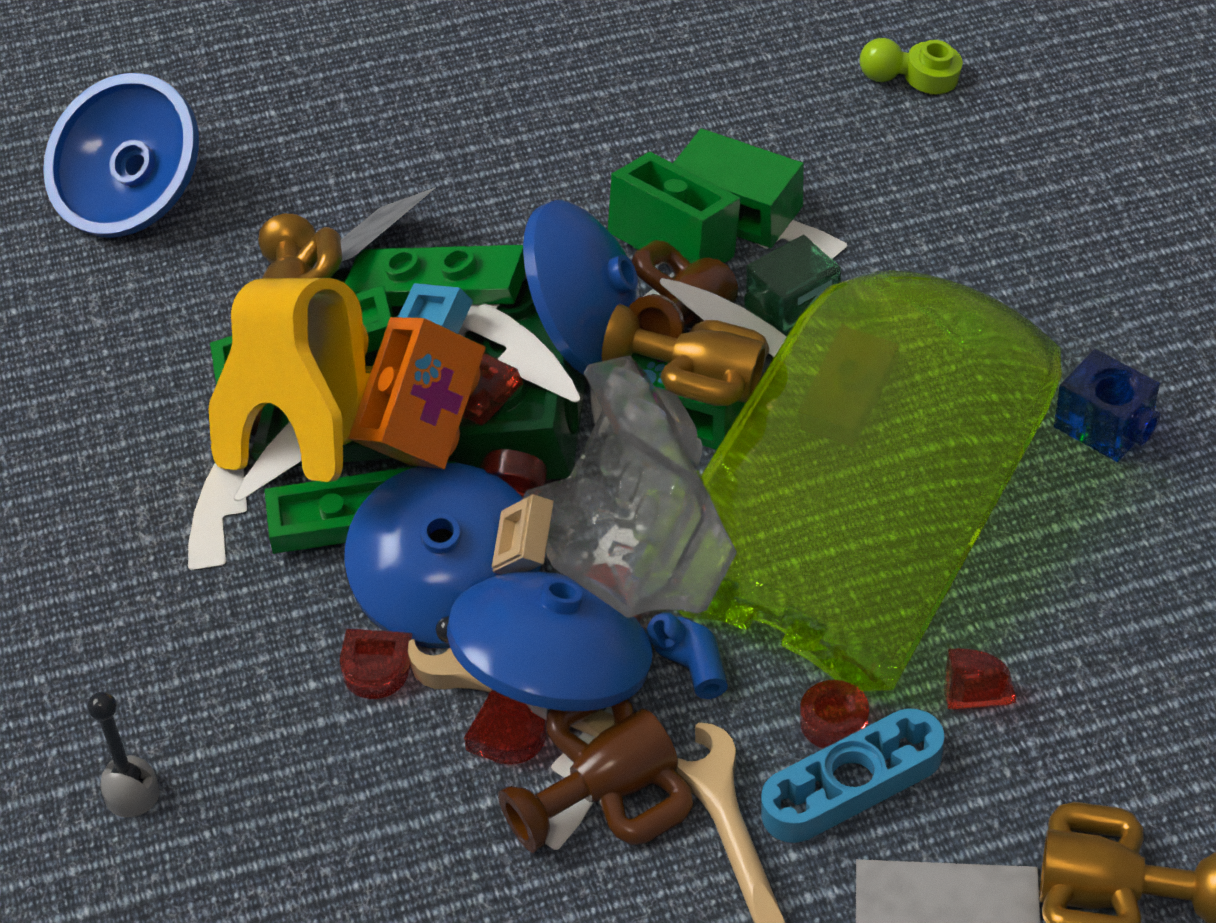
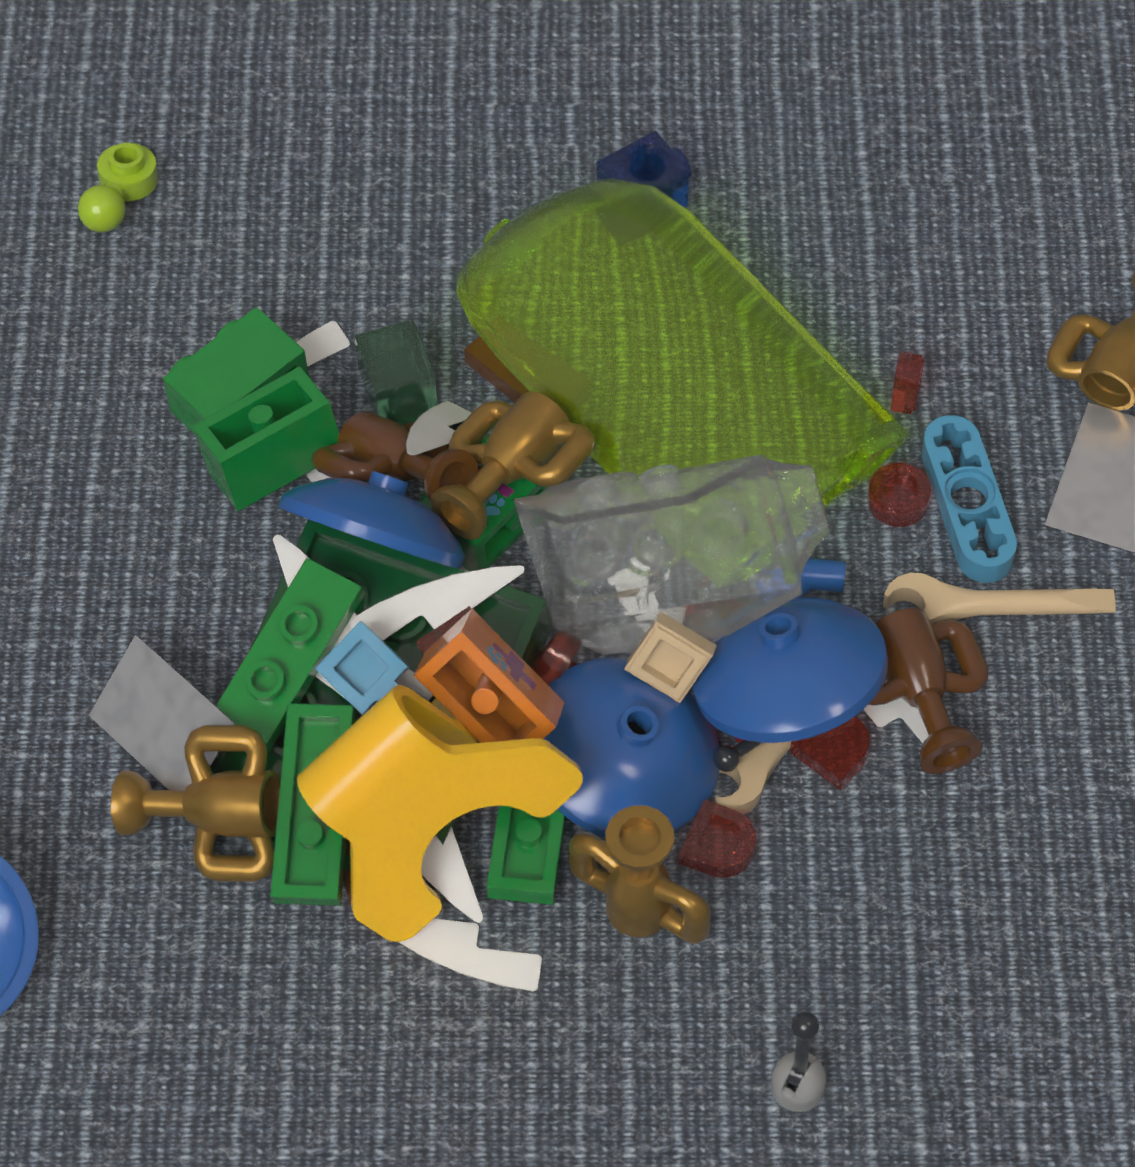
camera: 75 degrees left, 10 degrees up
(288, 588) = (637, 883): none -> pearl gold piece

